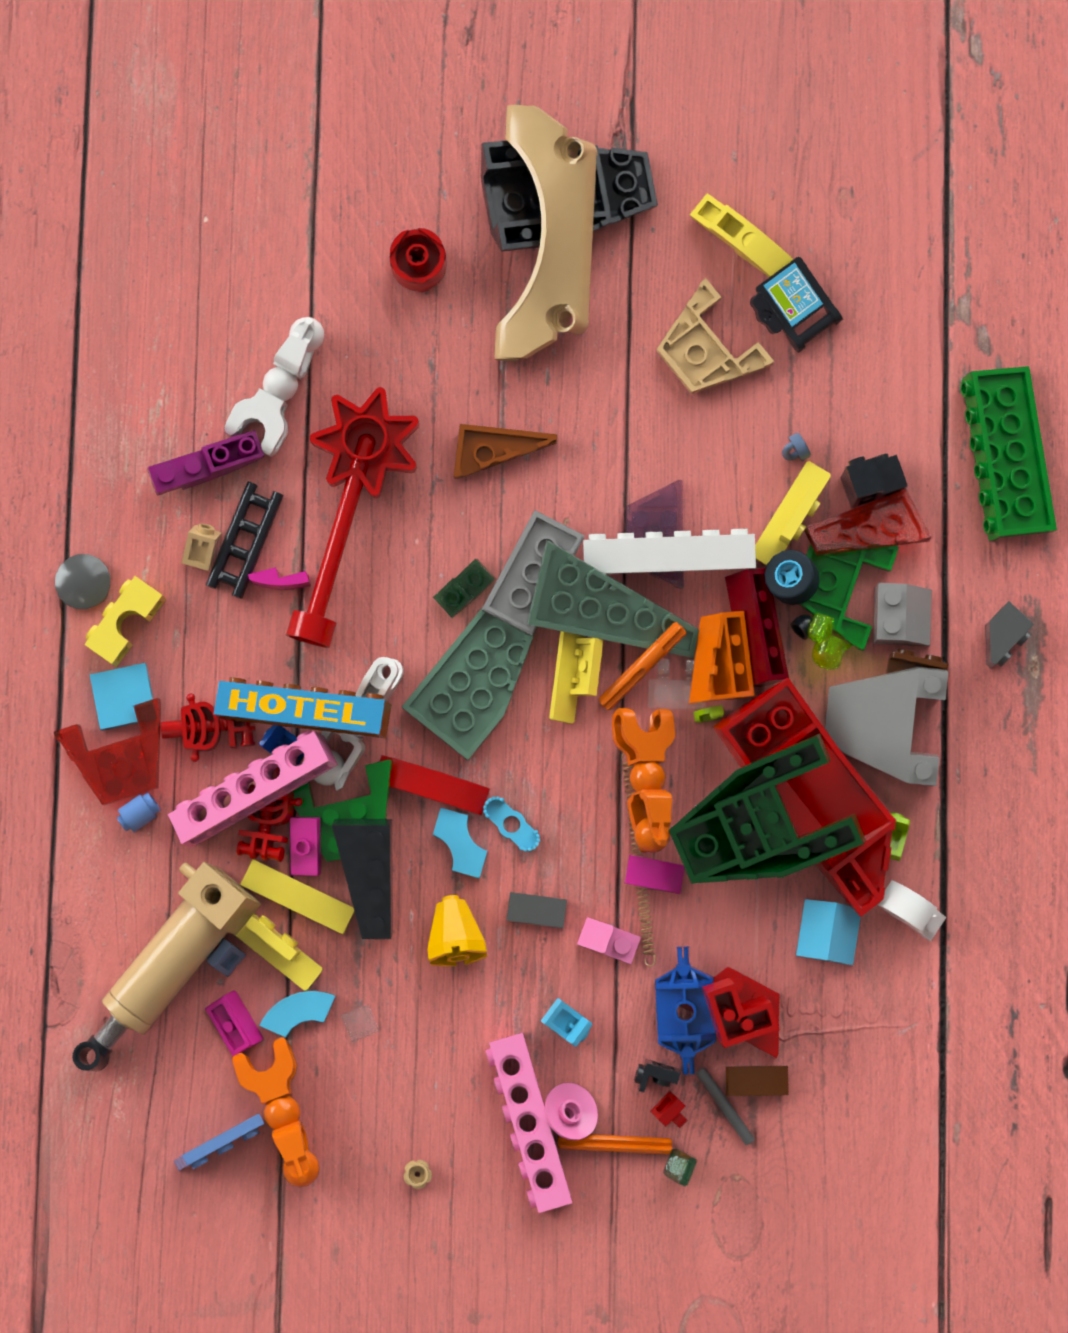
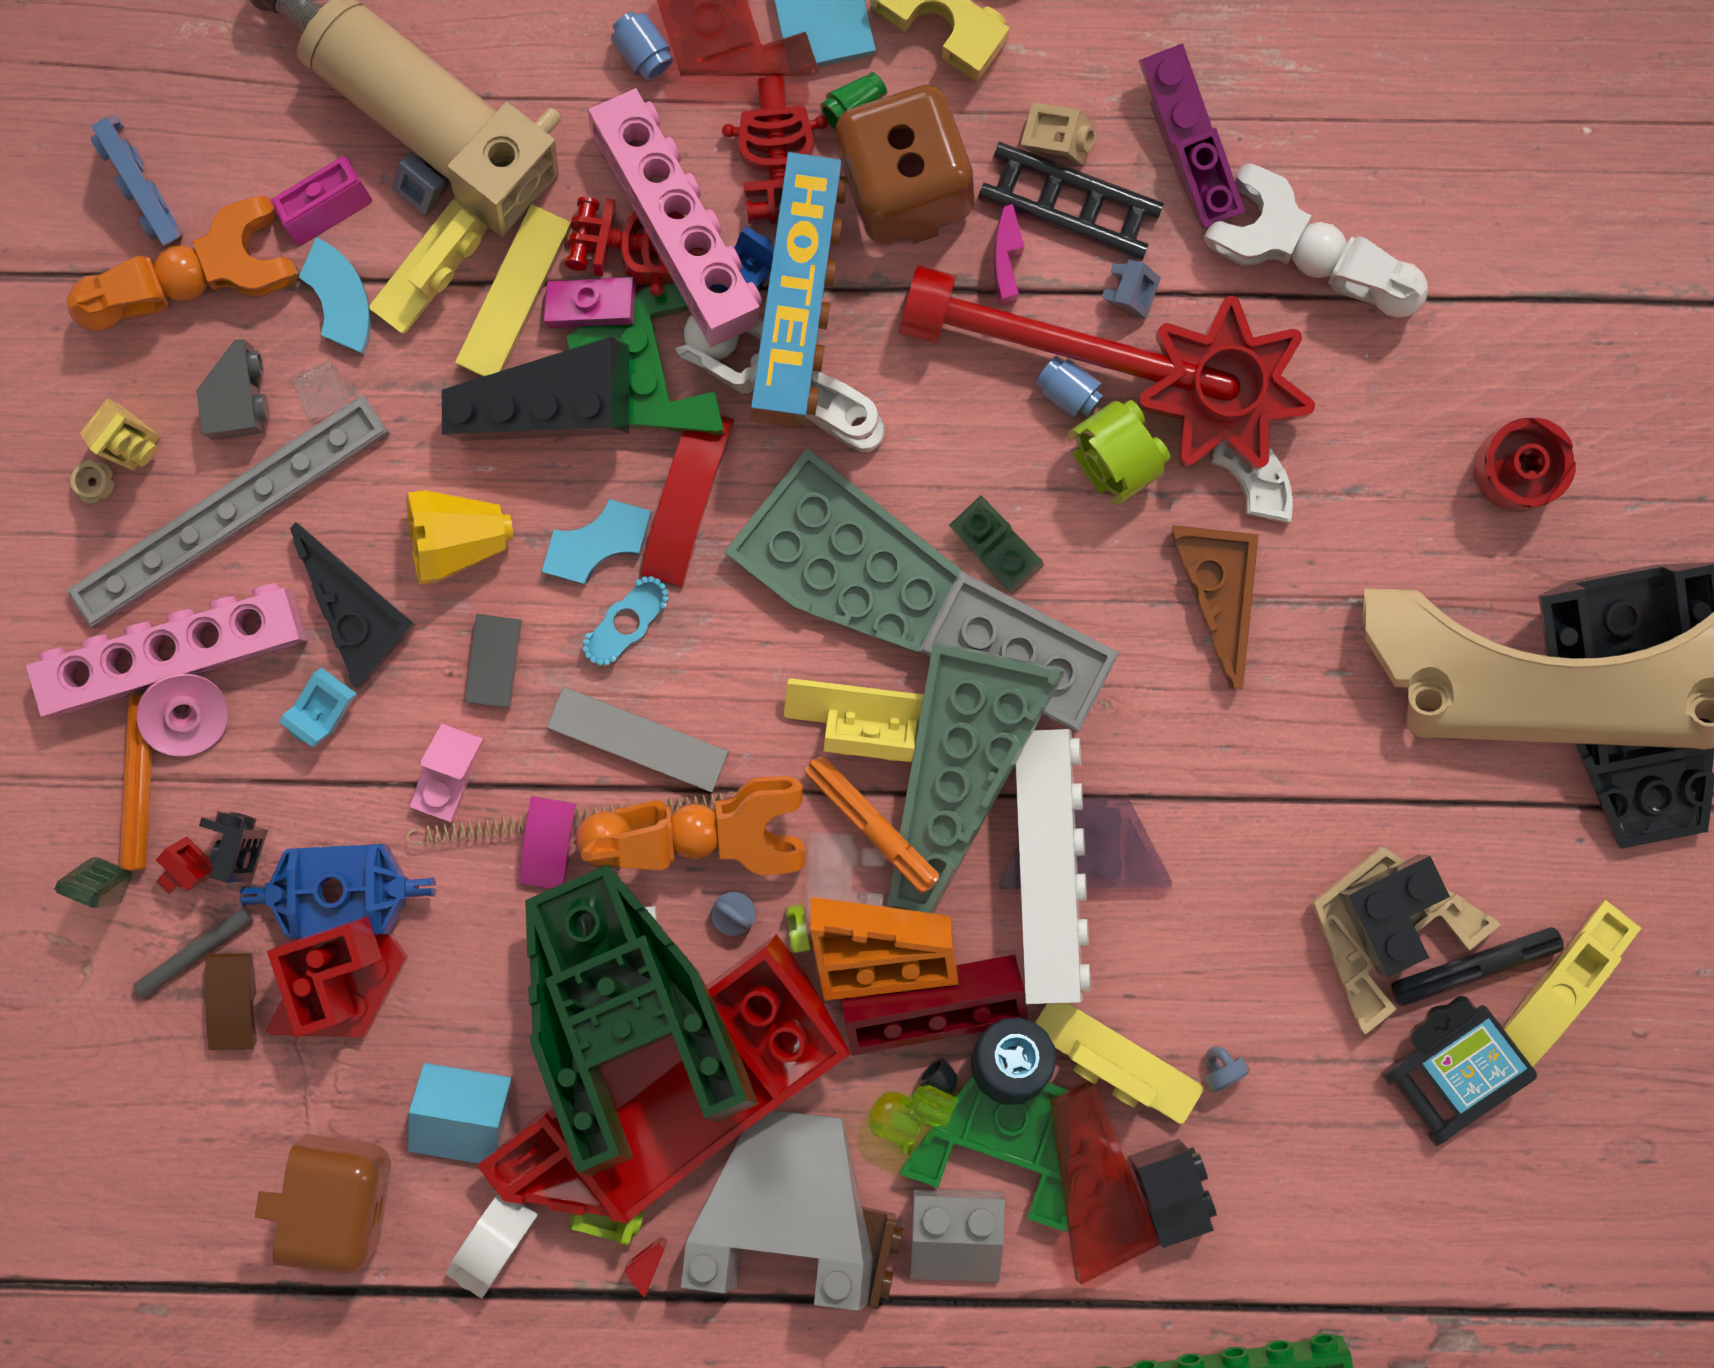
camera: 85 degrees right, 5 degrees up
(178, 677) = (852, 95): none -> green cone
(238, 658) = (885, 199): none -> dark orange piece
(301, 498) = (1135, 289): none -> sand blue tile
(364, 540) = (1070, 387): none -> medium blue brick
(364, 1080) = (231, 395): none -> dark grey slope
(387, 1152) = (120, 436): none -> light yellow slope
(406, 509) = (1119, 450): none -> lime brick
(432, 419) = (1265, 491): none -> white tile
(438, 1084) = (227, 511): none -> light grey tile
(507, 997) = (360, 618): none -> black wing
(587, 816) = (638, 739): none -> light grey tile
(694, 347) = (1383, 912): none -> black brick
(699, 756) = (733, 913): none -> sand blue tile
(731, 293) = (1477, 966): none -> black axle
(887, 1009) = (328, 1204): none -> dark orange piece
(923, 811) = (643, 1265): none -> red slope

